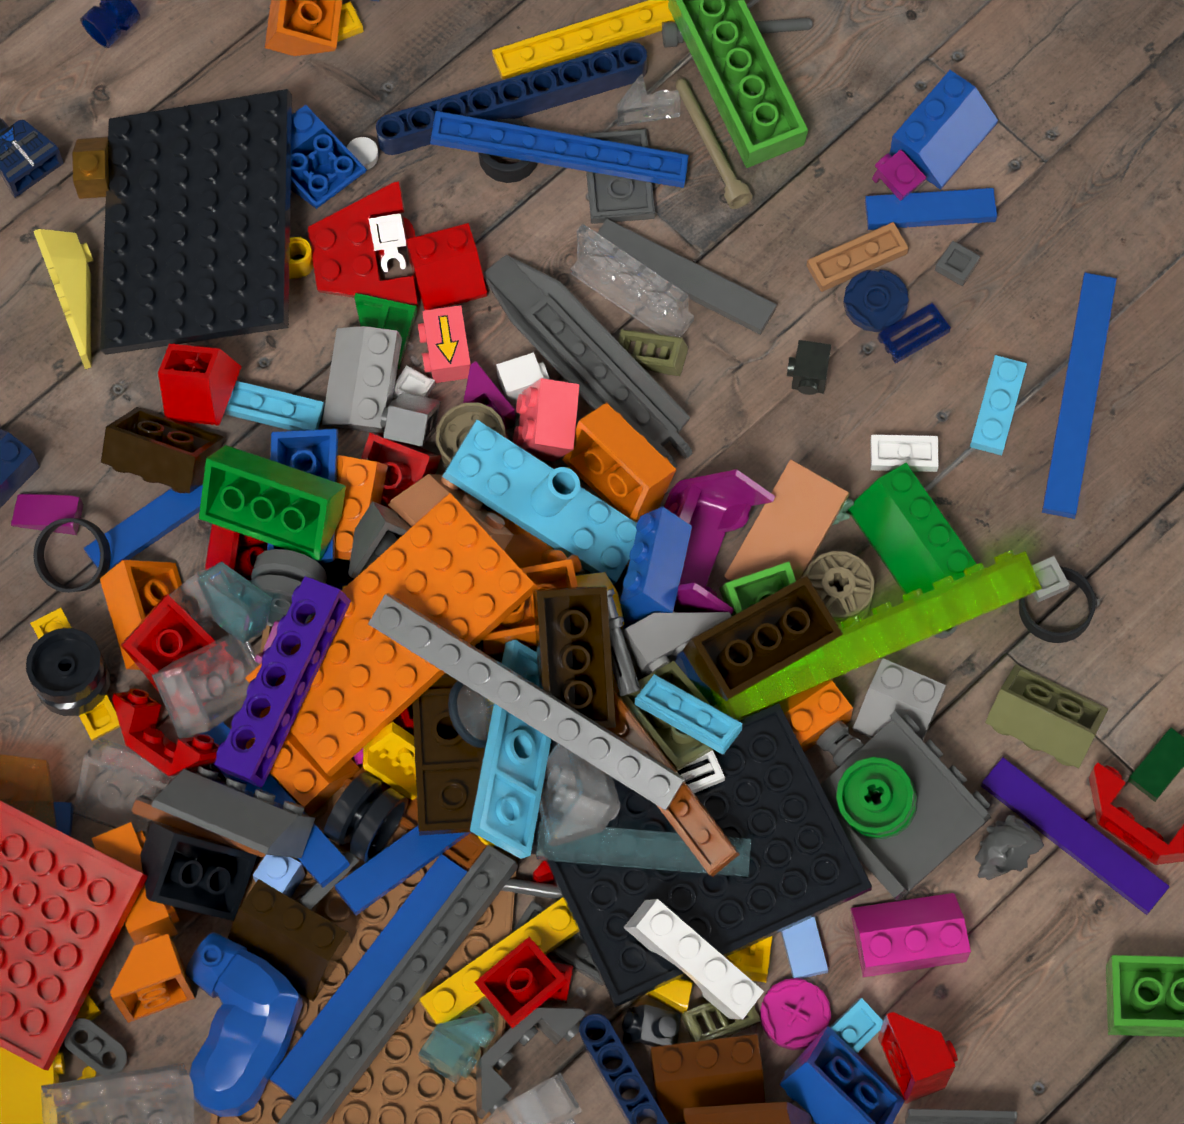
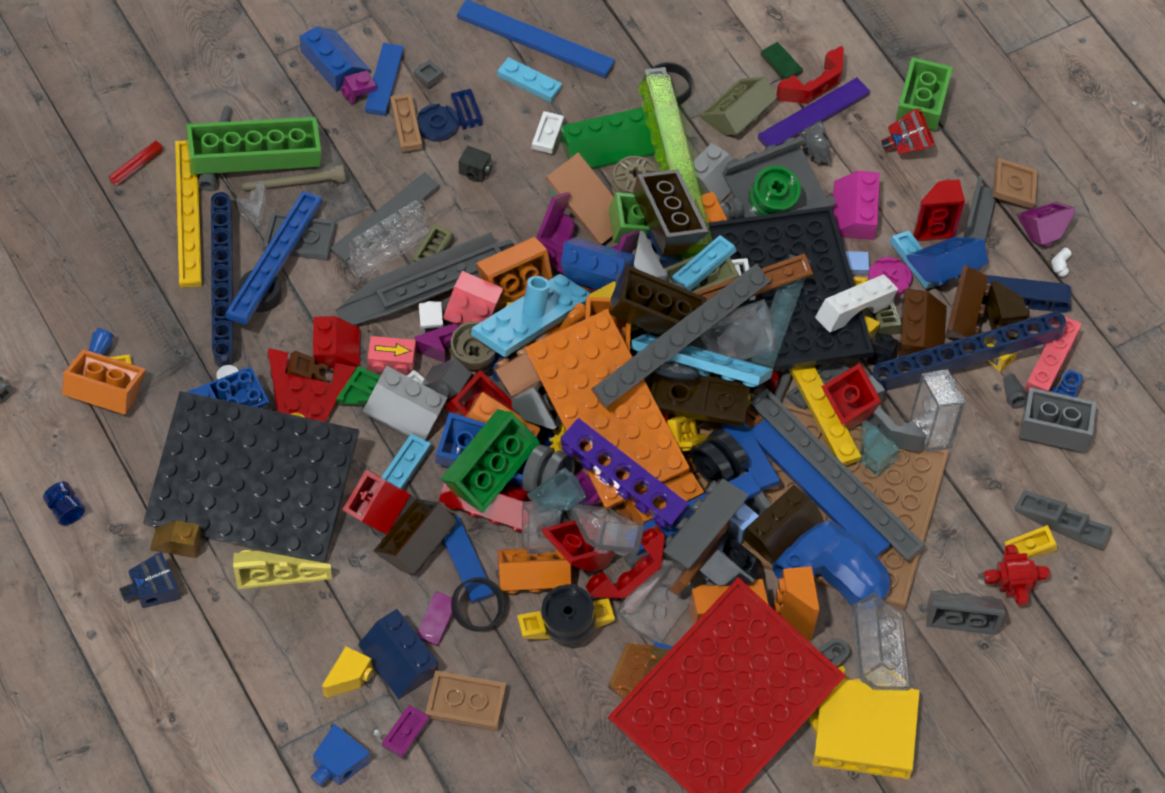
camera: 80 degrees left, 10 degrees down
(1067, 988) = (909, 134): none -> red torso

